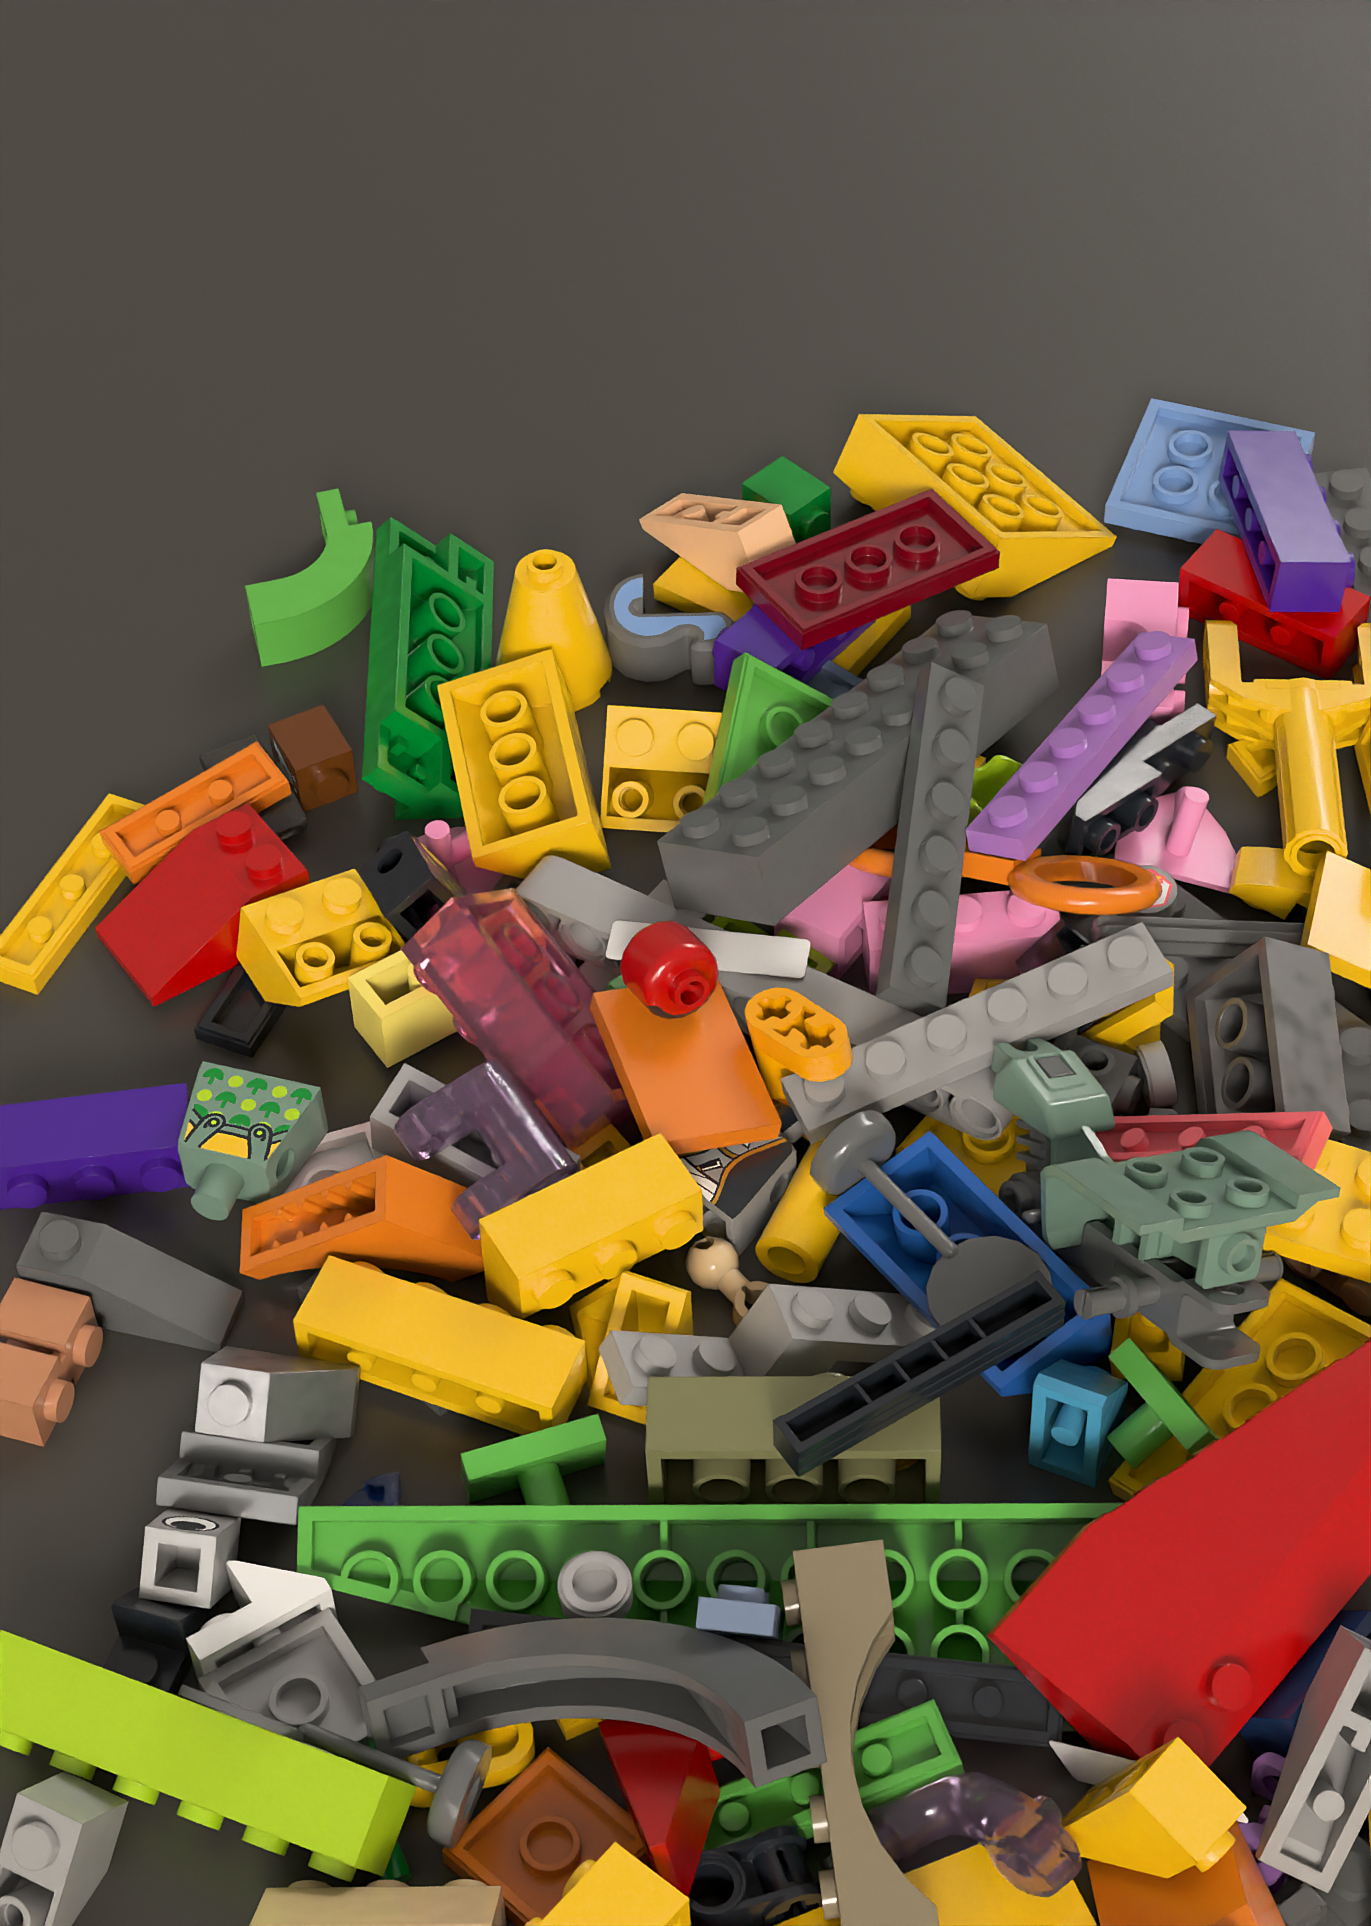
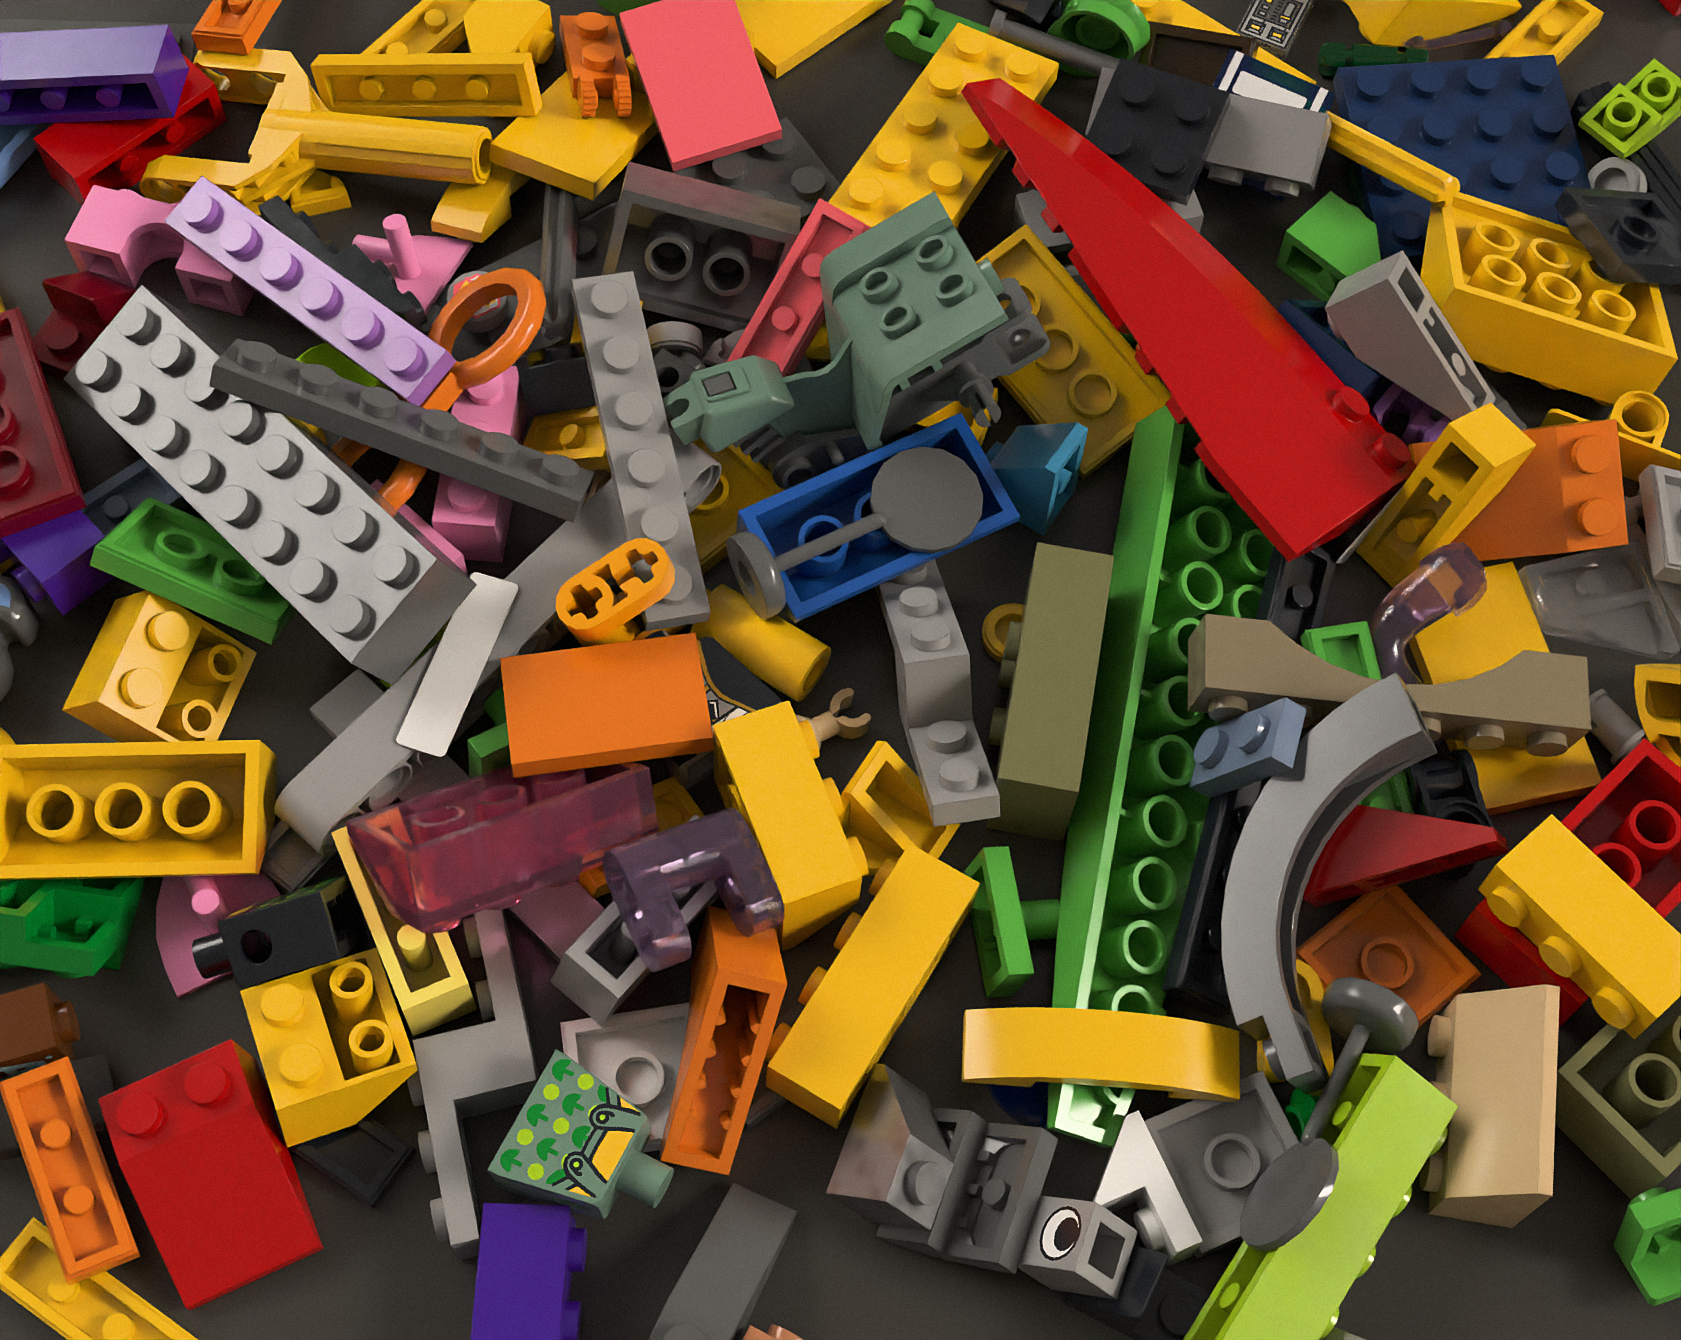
camera: 85 degrees left, 15 degrees up
(318, 1053) = (472, 1075): none -> light grey bracket
(382, 1546) = (1101, 1050): none -> yellow slope
(595, 1586) = (1180, 872): light grey tile -> none
(669, 969) = (517, 681): red head -> none
(918, 1373) = (1055, 549): black piece -> none
(1071, 622) = (81, 312): none -> dark red slope
(1160, 1417) = (1061, 400): bright green tile -> none

